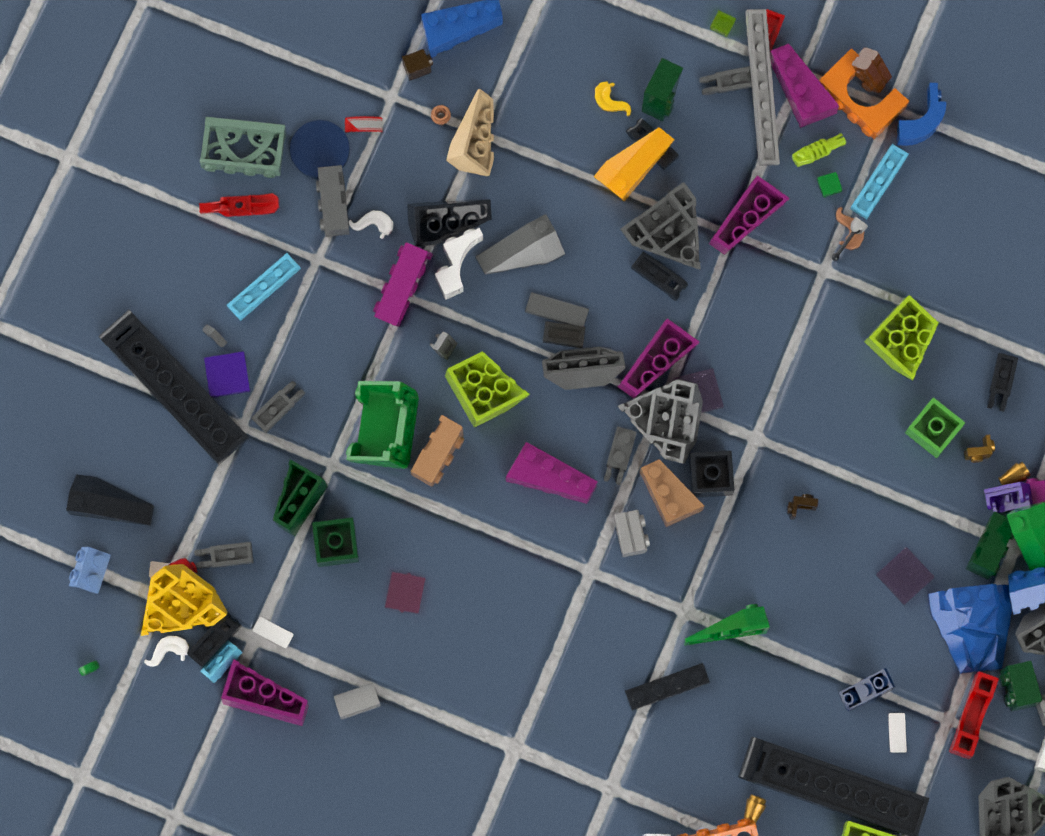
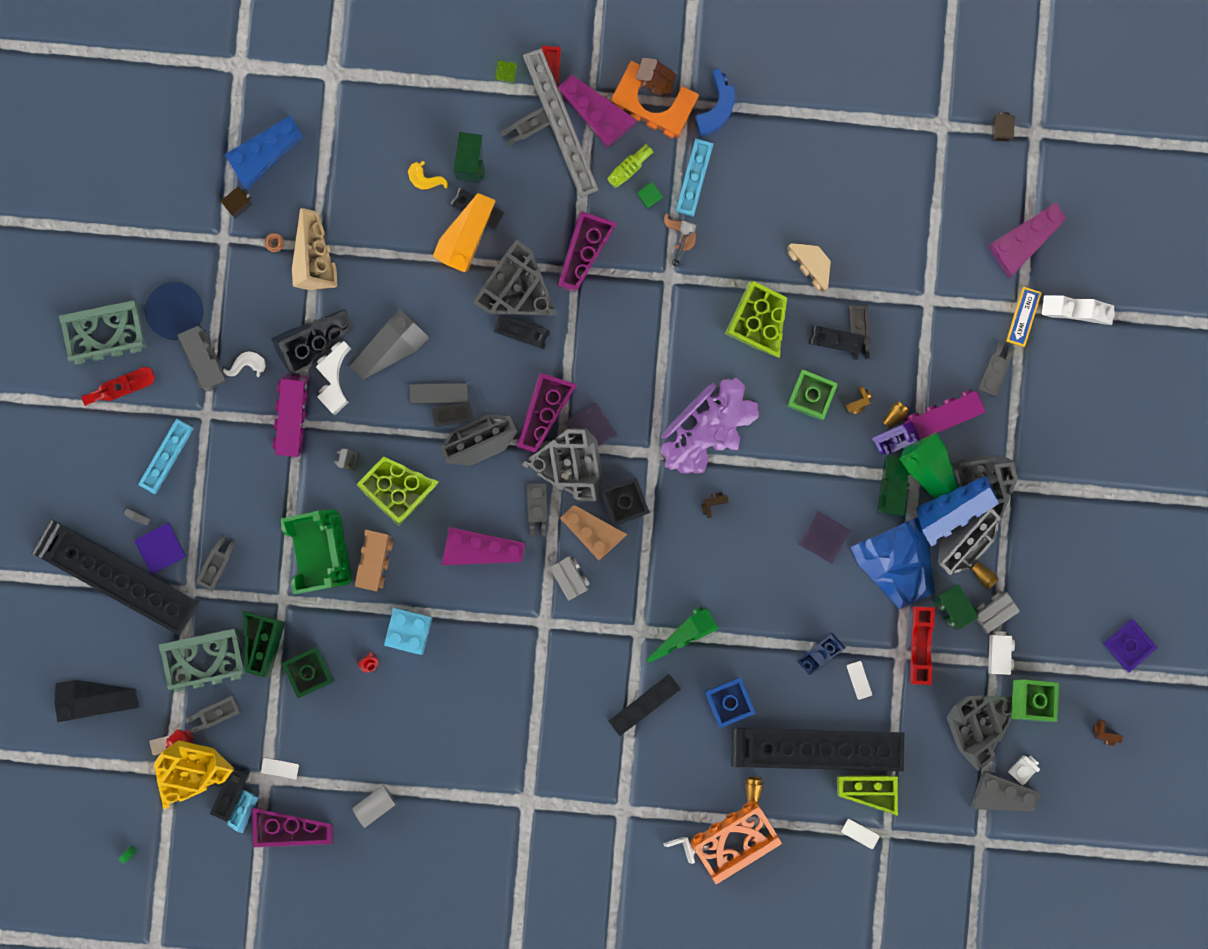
camera: 15 degrees left, 10 degrees up
(89, 569) = (97, 766): medium blue bracket -> none
(170, 643) = (194, 807): white piece -> none
(214, 475) = (178, 650): none -> sand green fence
(363, 124) = (206, 273): sticker -> none
(398, 554) = (368, 663): none -> red plate
(405, 592) = (385, 695): clear pink piece -> none
(450, 534) = (408, 631): none -> medium azure brick
(757, 709) = (729, 702): none -> blue brick
(824, 430) = (714, 427): none -> medium lavender plant
(974, 299) = (813, 263): none -> tan slope
(976, 382) = (837, 339): none -> black plate

